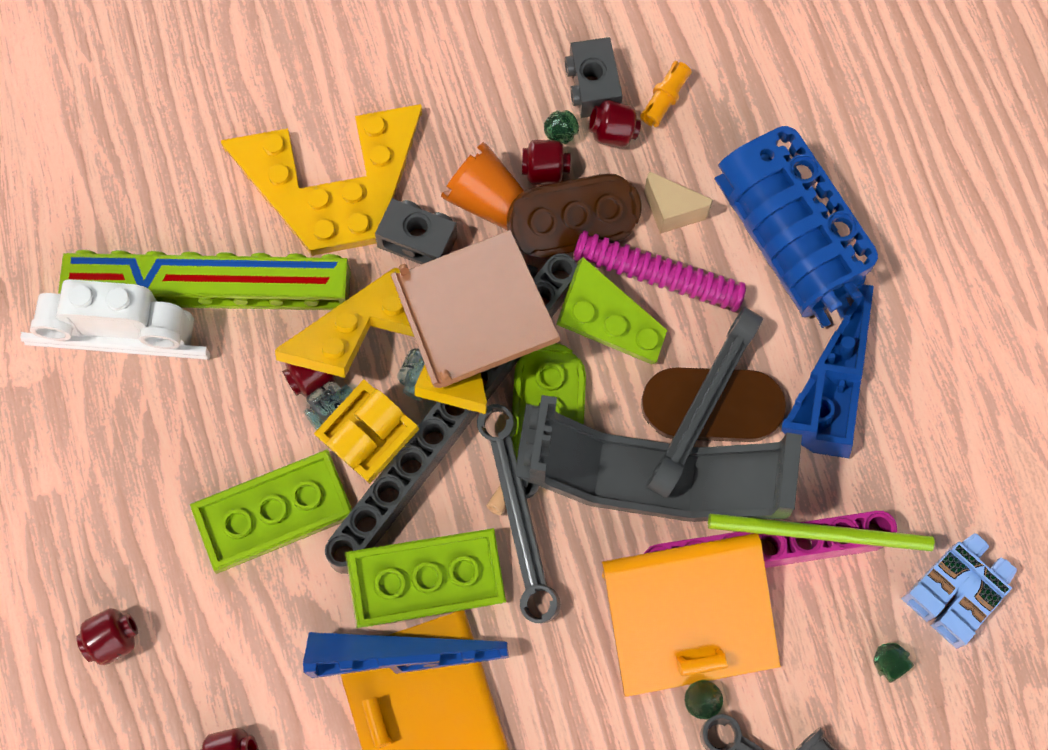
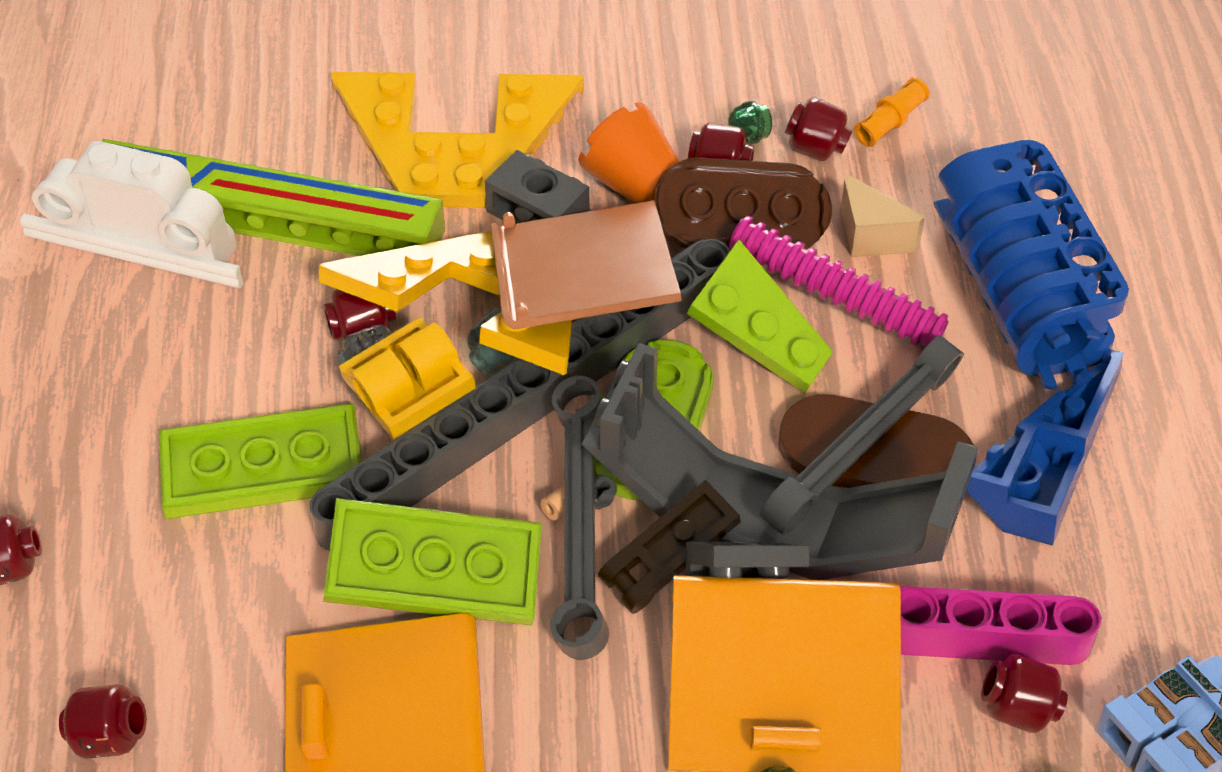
camera: 15 degrees right, 20 degrees down
(350, 653) = (379, 646): blue wedge -> none
(589, 526) = (662, 546): none -> dark brown plate
(597, 60) = (804, 72): dark grey brick -> none
(645, 532) = (744, 559): none -> dark grey bracket
(820, 532) = (991, 600): lime piece -> none
(851, 588) = (1024, 693): none -> dark red head

